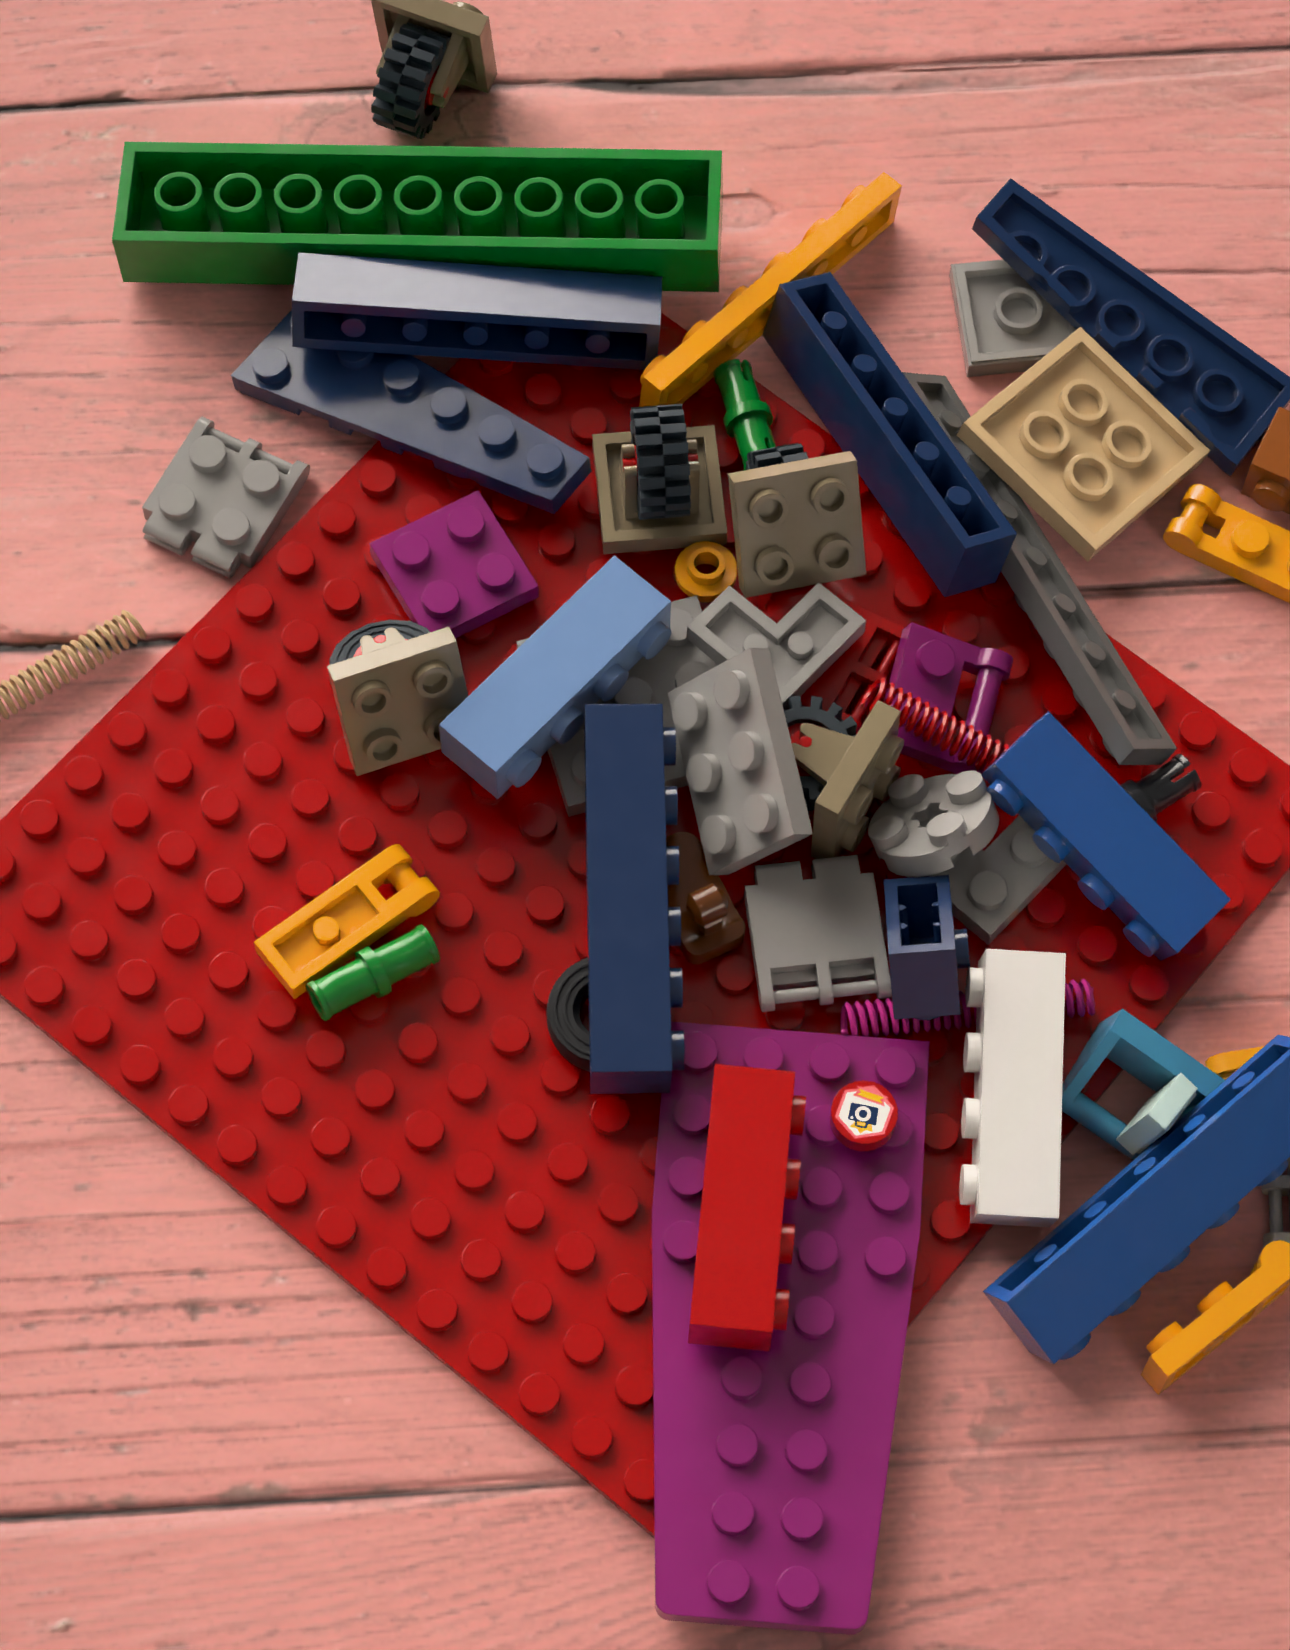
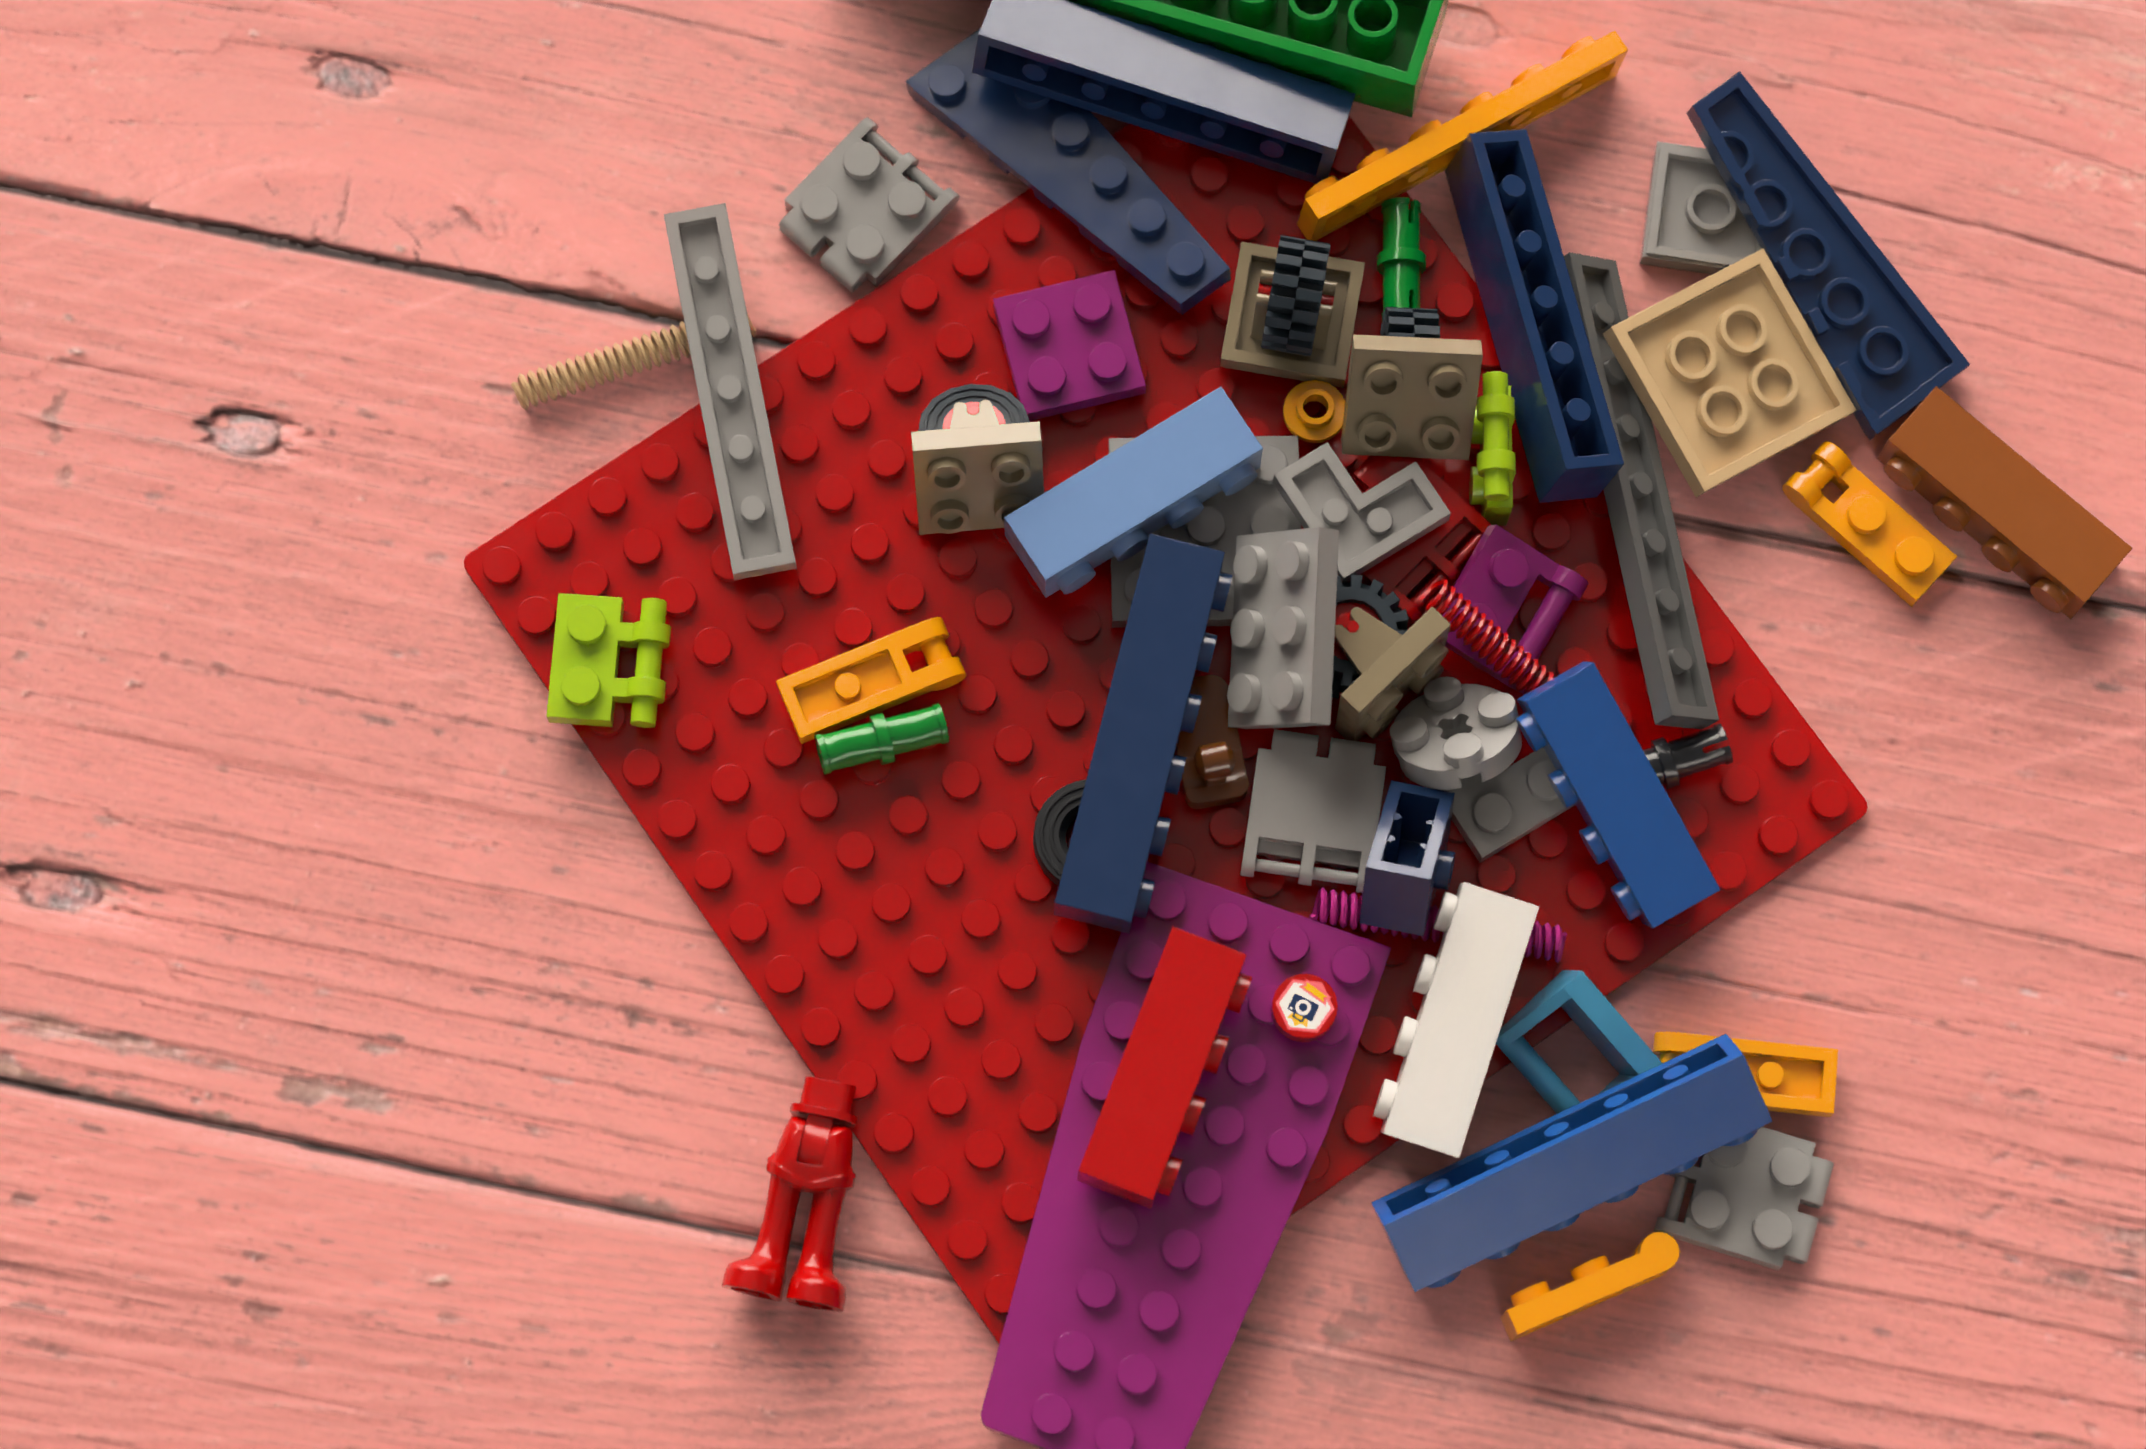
camera: 15 degrees right, 10 degrees up
(59, 973) = (587, 661): none -> lime plate
(137, 688) = (730, 392): none -> light grey plate
(412, 1397) = (813, 1159): none -> red piece
(892, 563) = (1496, 462): none -> lime plate
(1157, 1114) = (1587, 1079): light aqua tile -> none

